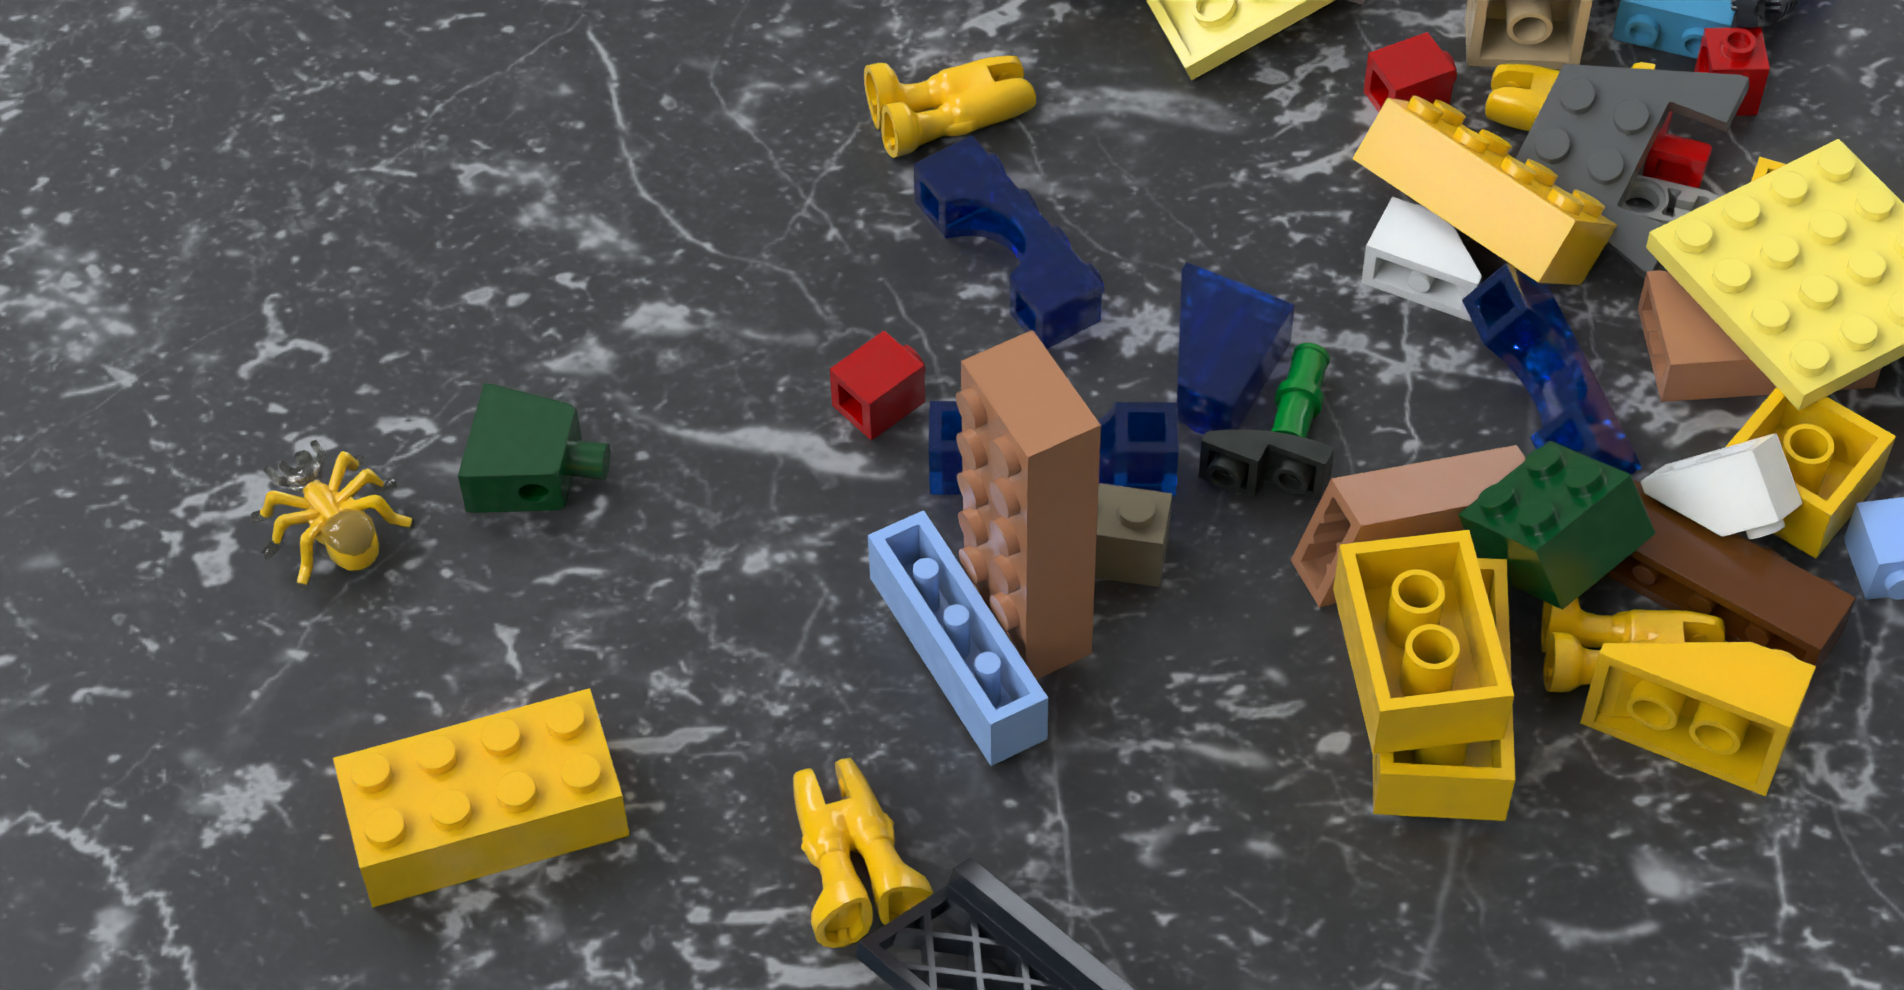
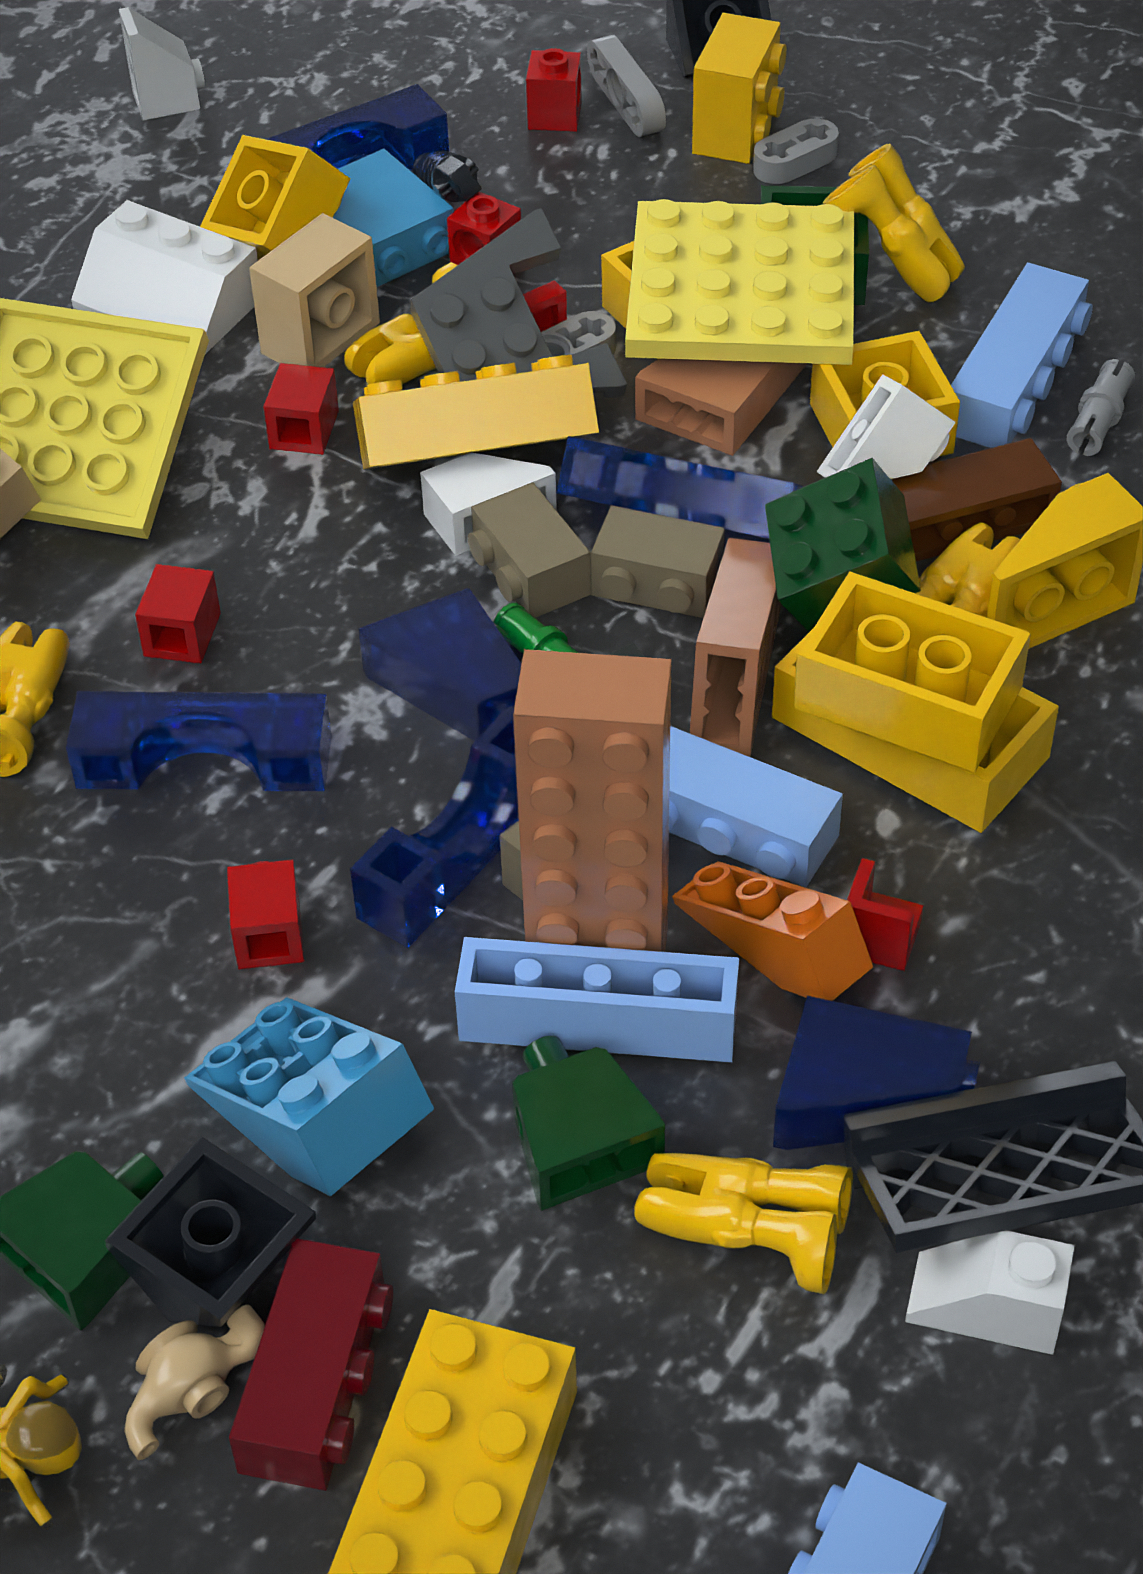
camera: 55 degrees left, 5 degrees down
(463, 589) = (188, 1374): none -> tan piece
(521, 652) = (311, 1365): none -> dark red brick
(565, 522) = (207, 1235): none -> black slope
(743, 514) = (313, 1092): none -> dark azure slope
(843, 693) = (581, 1122): none -> dark green torso
(1041, 850) = (862, 1061): none -> clear blue slope
(1120, 146) = (178, 613): none -> red brick
(1136, 720) = (782, 929): none -> orange slope
(1206, 784) = (884, 921): none -> red panel
(1235, 598) = (750, 809): none -> light blue brick
(1392, 323) = (530, 550): none -> dark tan brick
(1457, 405) = (656, 561): none -> dark tan brick

